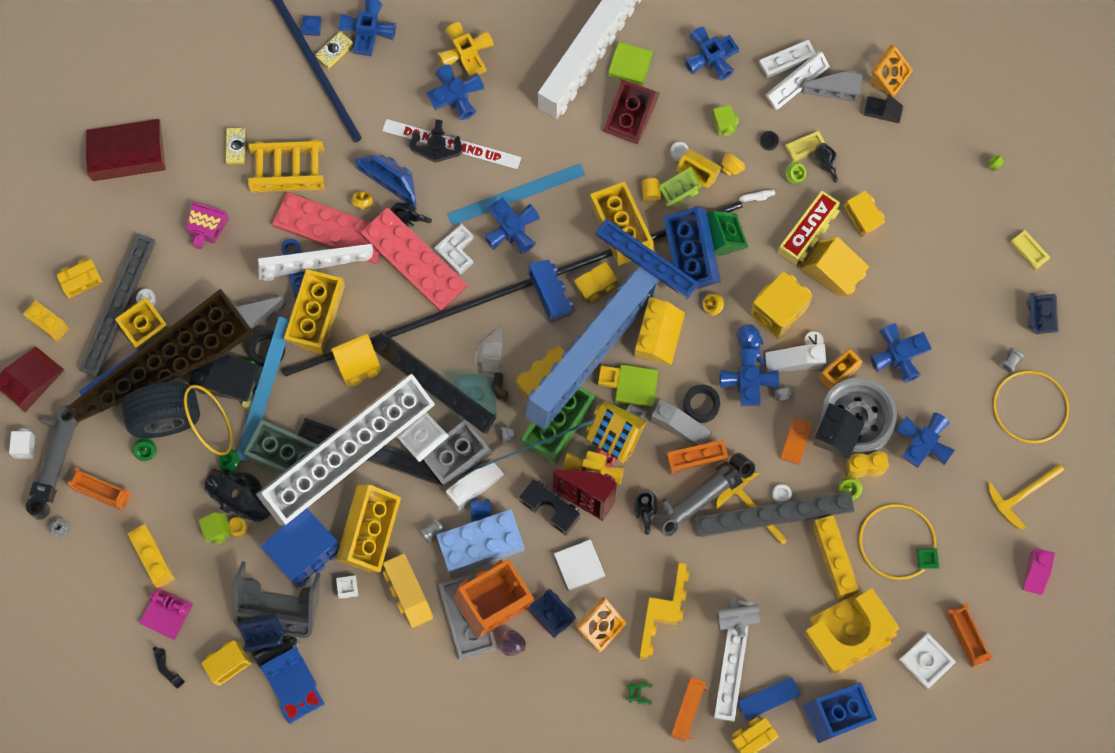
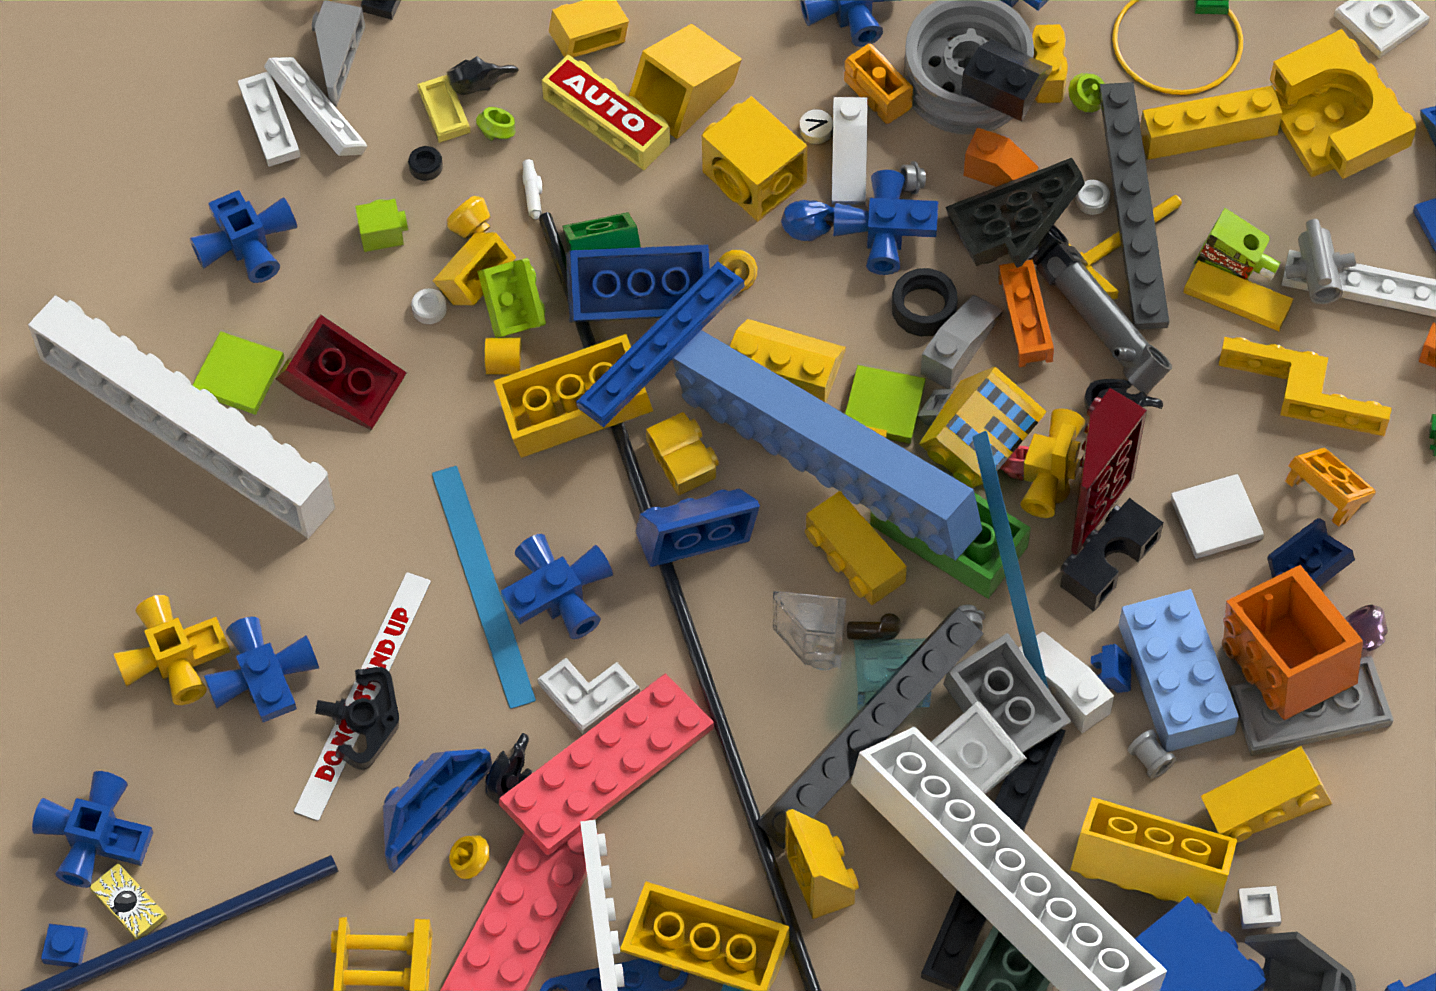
camera: 85 degrees left, 10 degrees down
(722, 576) = (1238, 295): none -> yellow tile
(749, 563) = (1237, 248): none -> lime torso
(756, 445) = (1016, 213): none -> pearl dark grey wing

